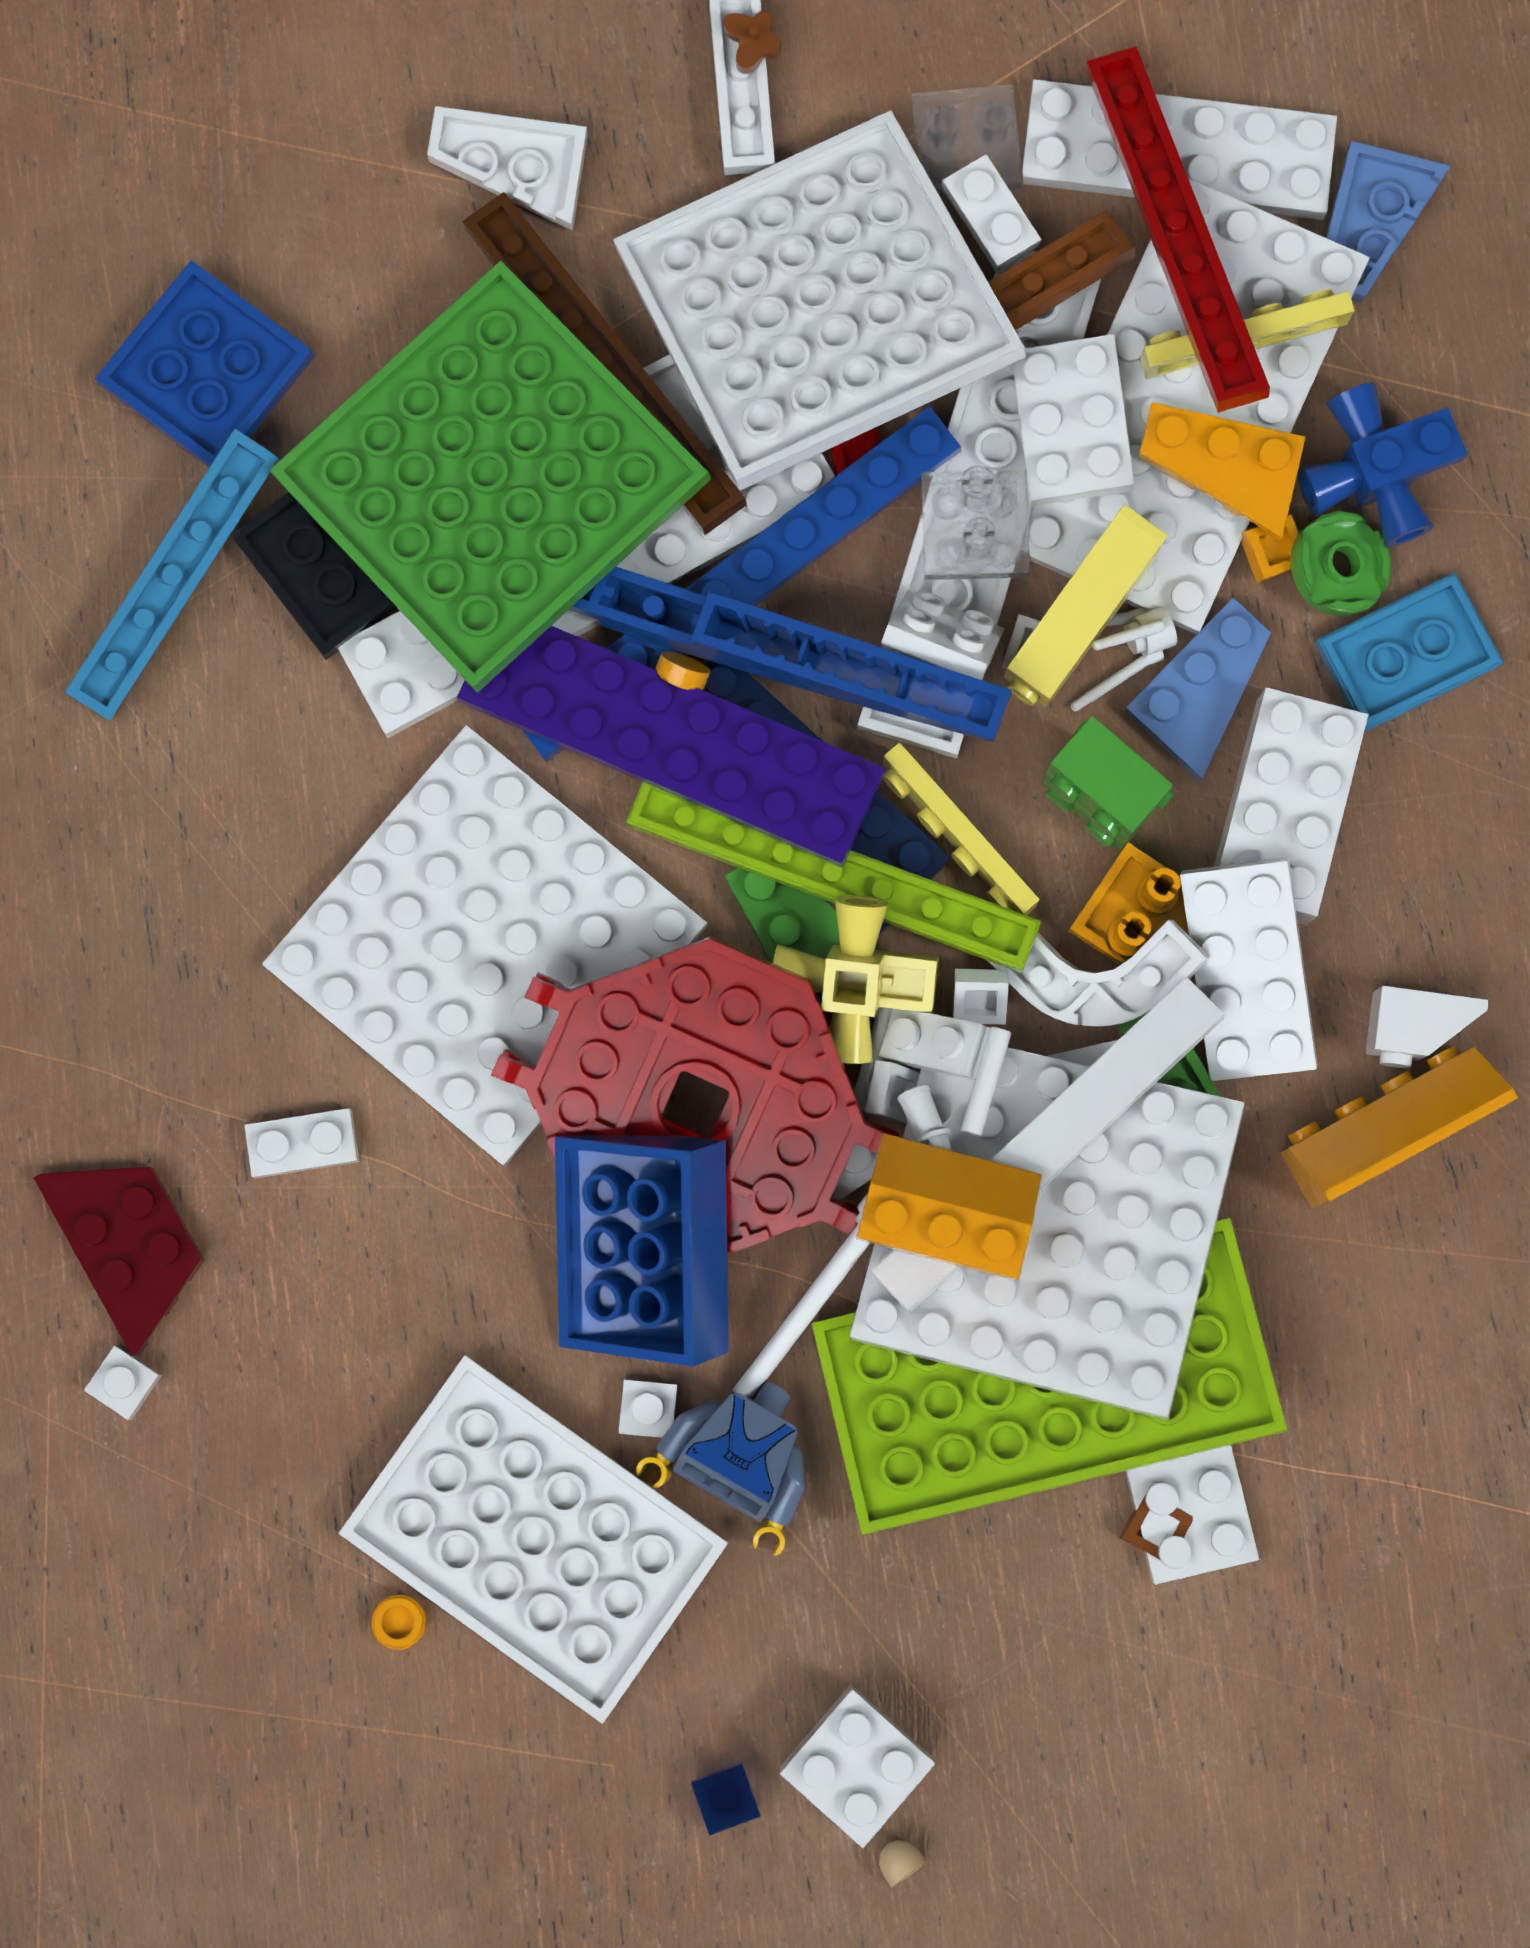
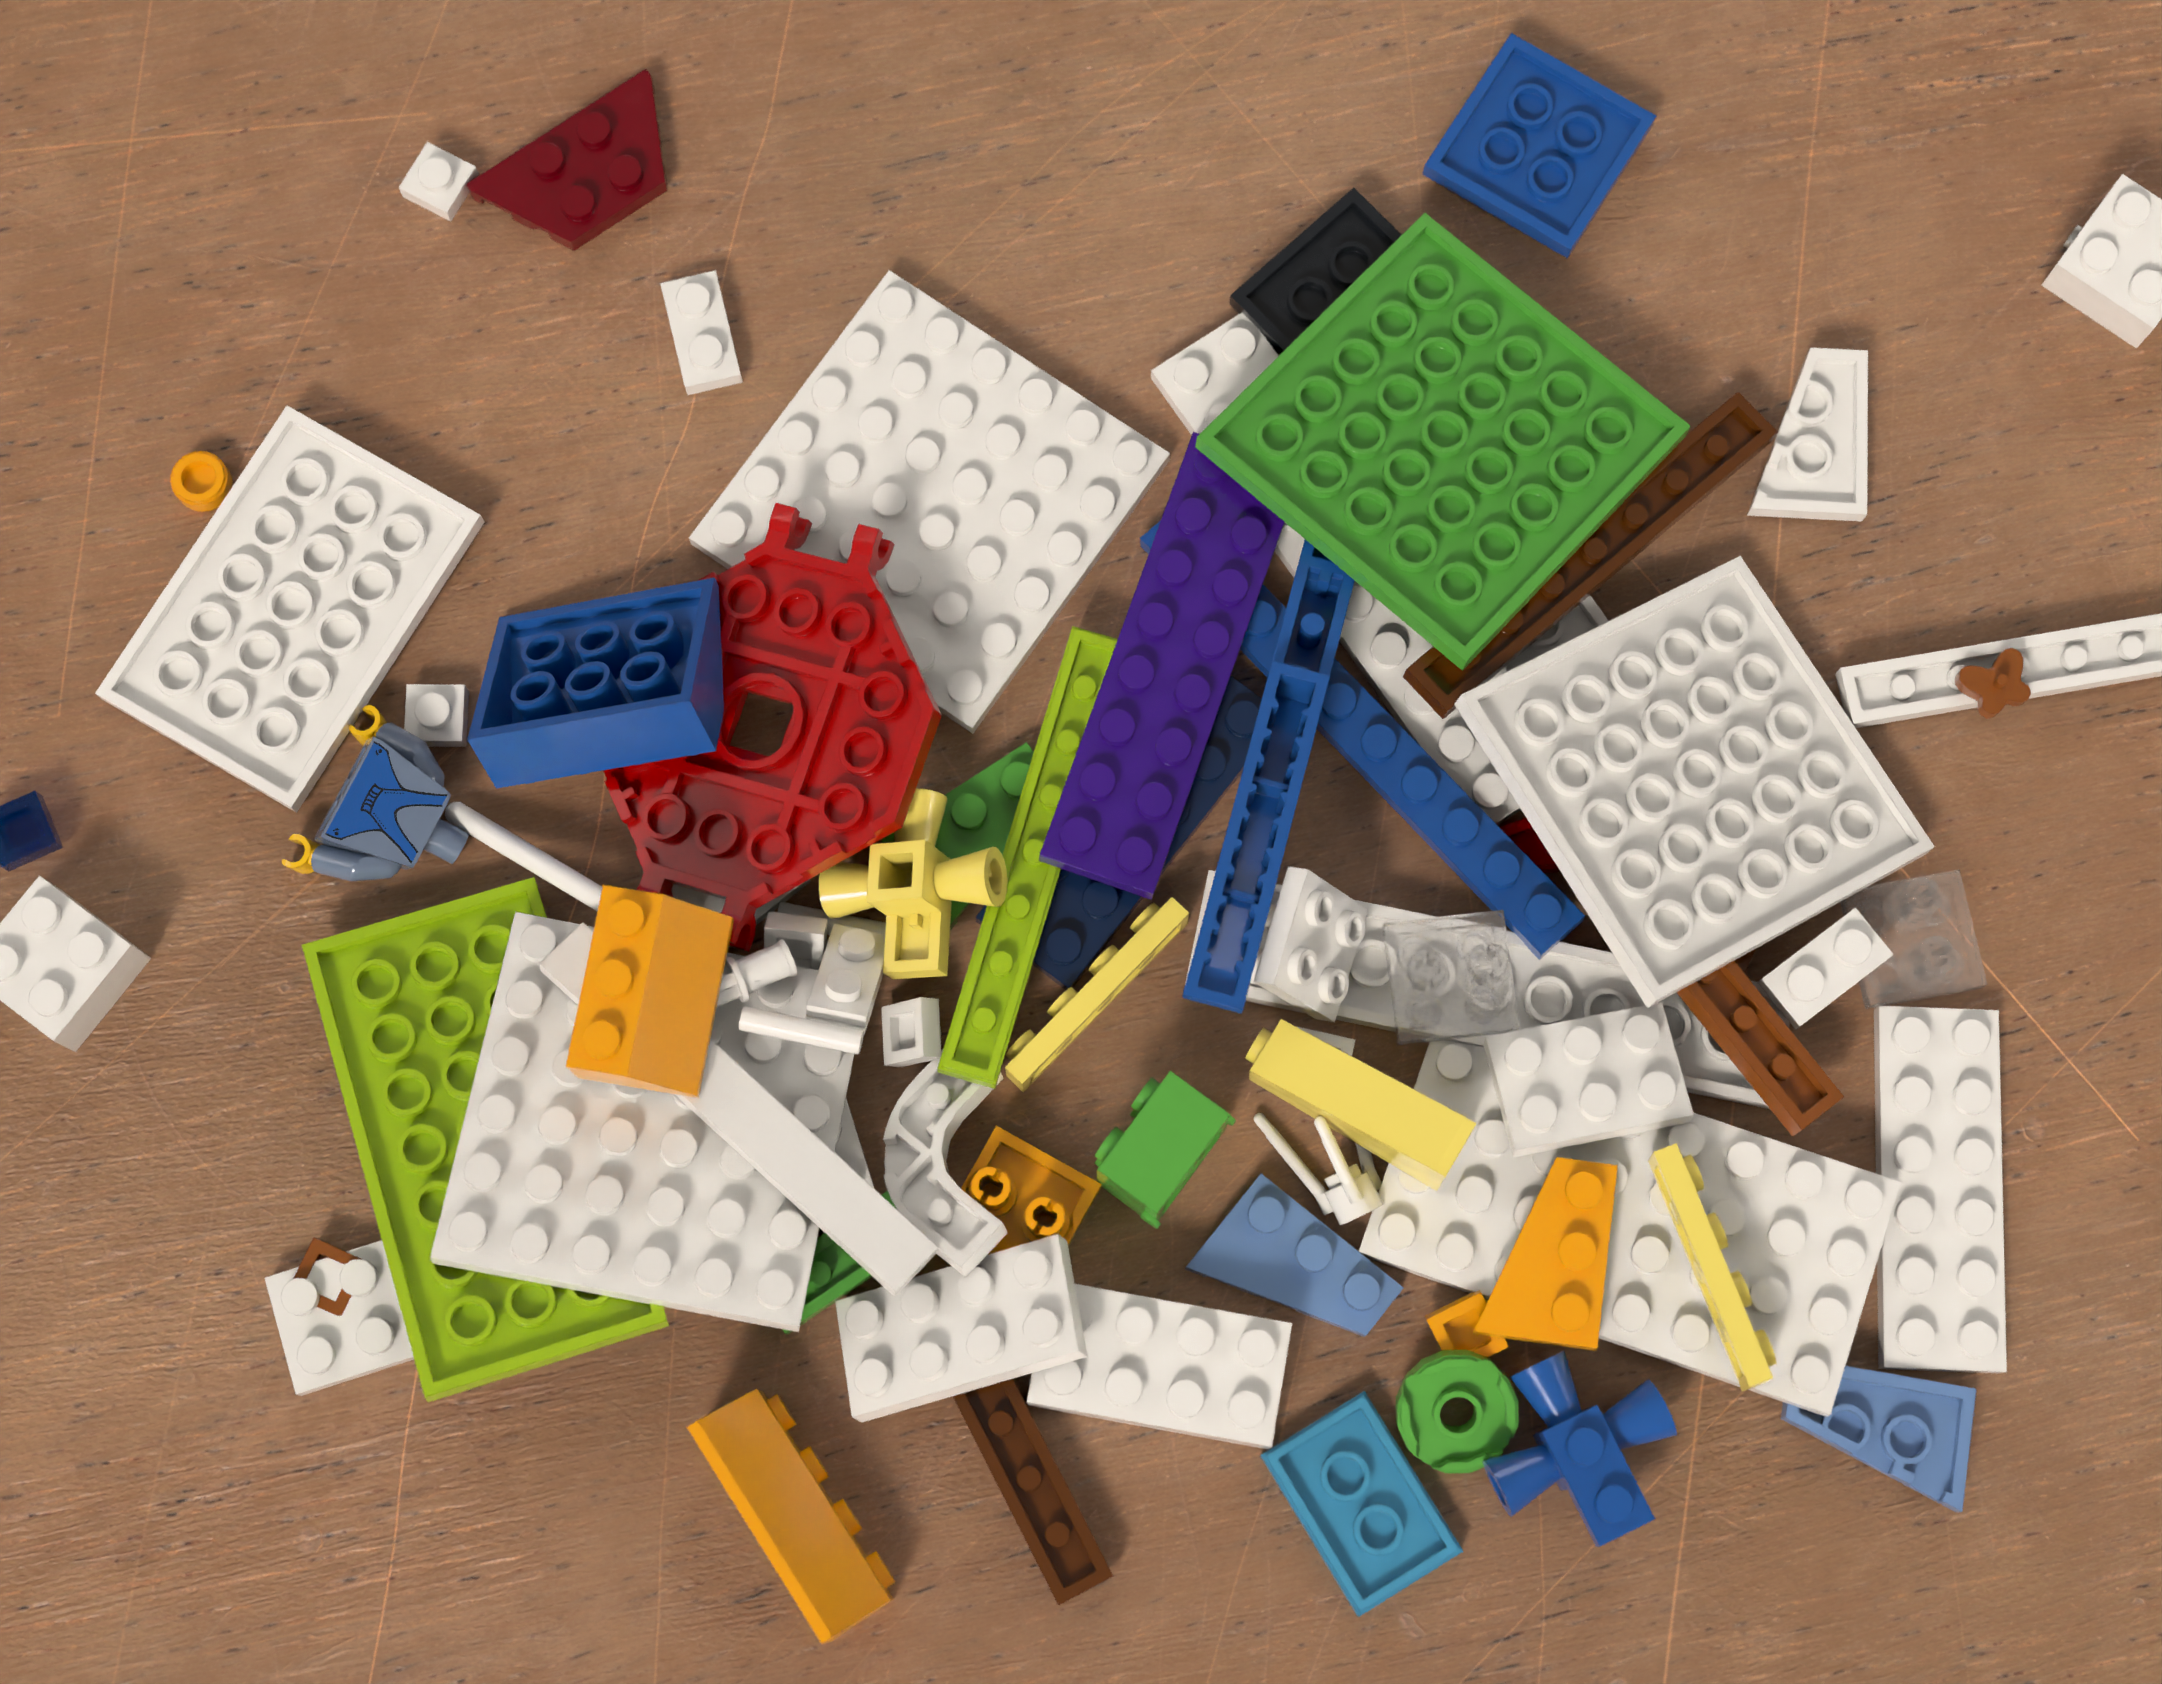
camera: 85 degrees right, 5 degrees down
(171, 574) = (1303, 132): dark azure plate -> none
(682, 671) = (1247, 669): light orange tile -> none
(1178, 230) = (1823, 1172): red plate -> none
(1387, 921) = (1034, 1489): none -> reddish brown plate
(1415, 1023) = (917, 1536): white slope -> none

